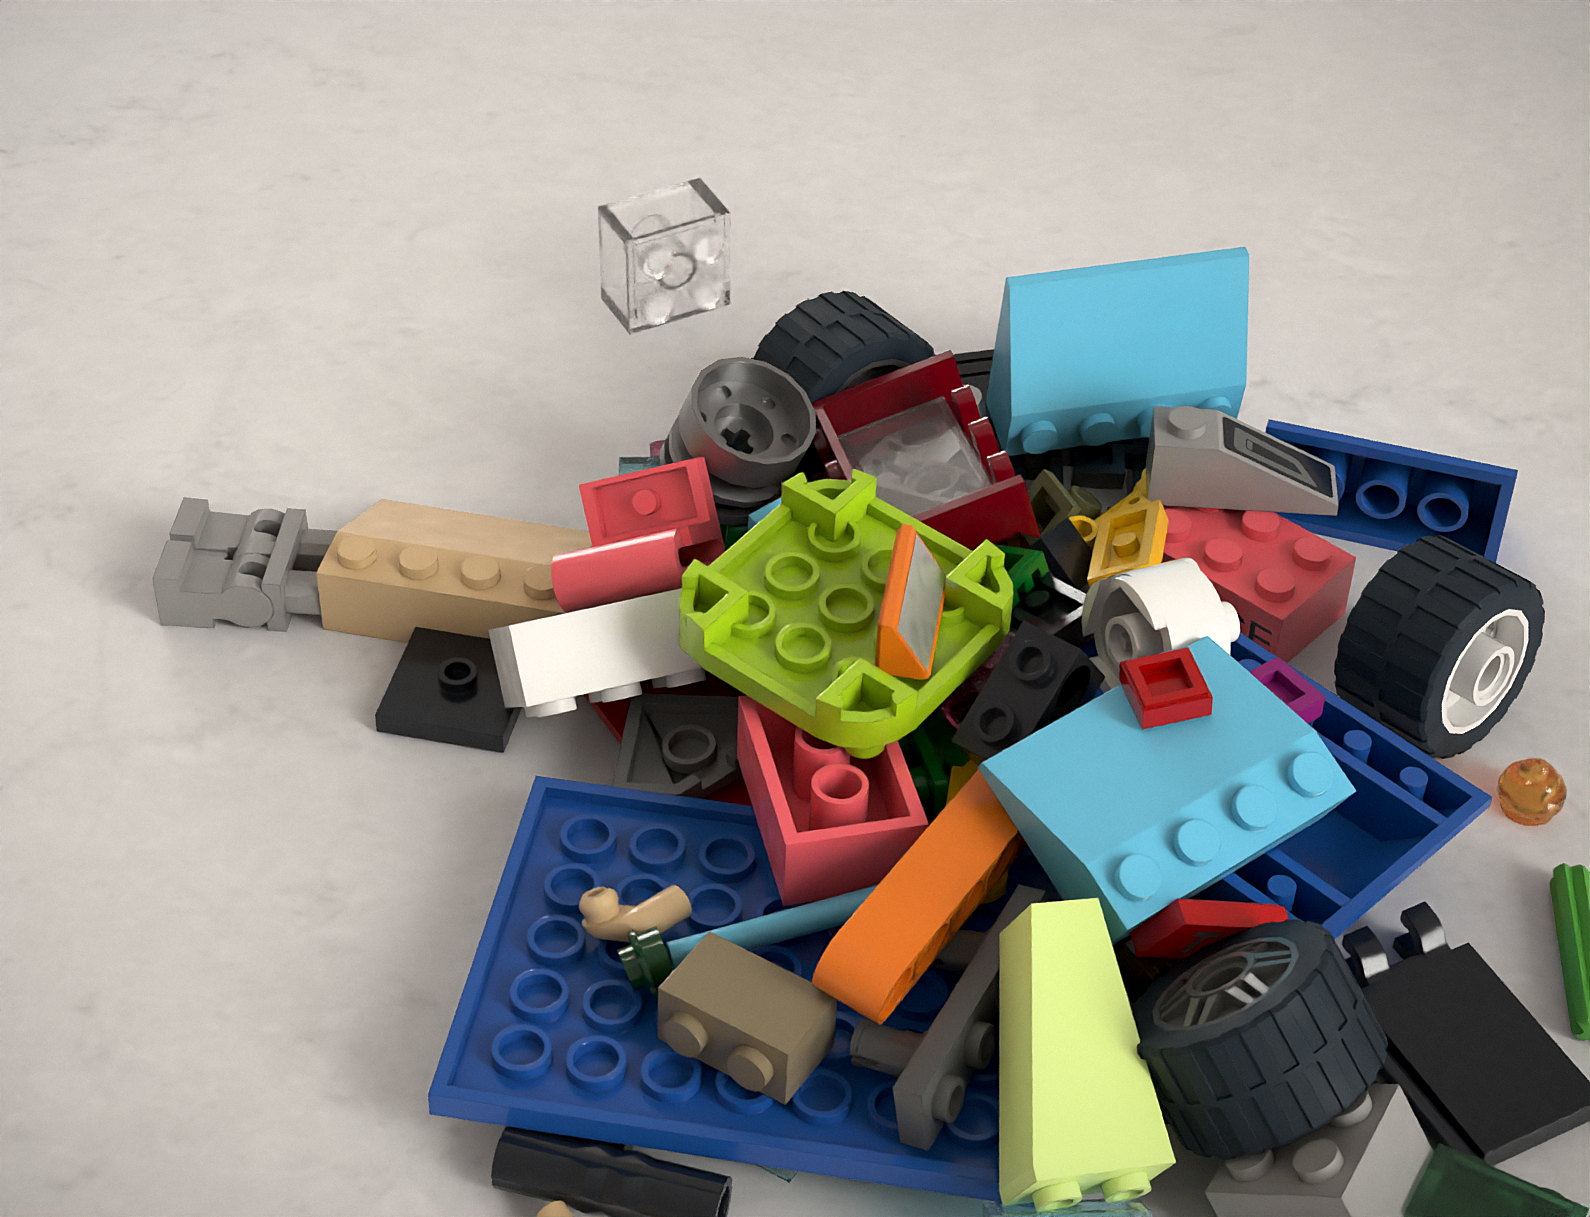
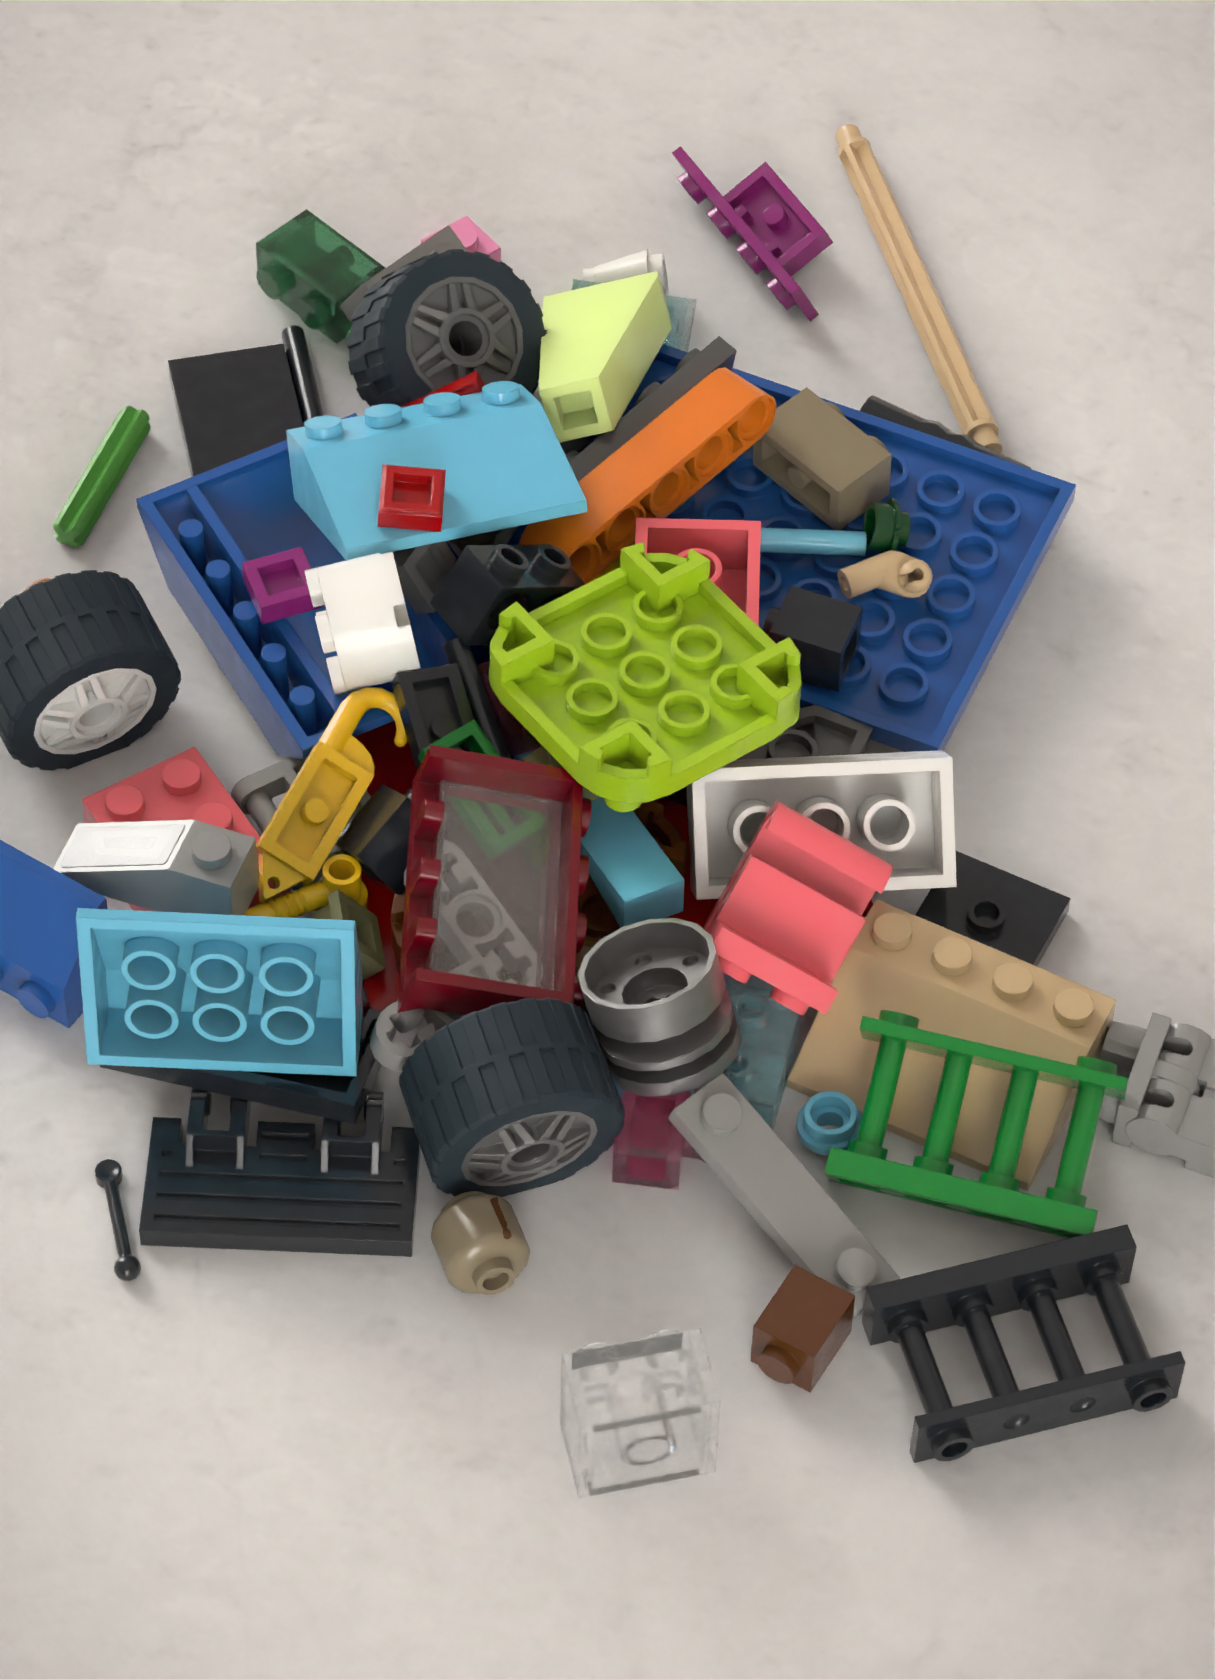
camera: 165 degrees left, 10 degrees up
(384, 410) = (1010, 1282): none -> black fence
(431, 472) = (931, 1176): none -> green fence
(554, 355) = (802, 1329): none -> reddish brown brick
(562, 502) = (828, 1109): none -> medium azure plate
(583, 414) = (778, 1190): none -> light grey plate
(696, 815) = (823, 632): none -> black brick
(910, 608) = (600, 625): slope -> none

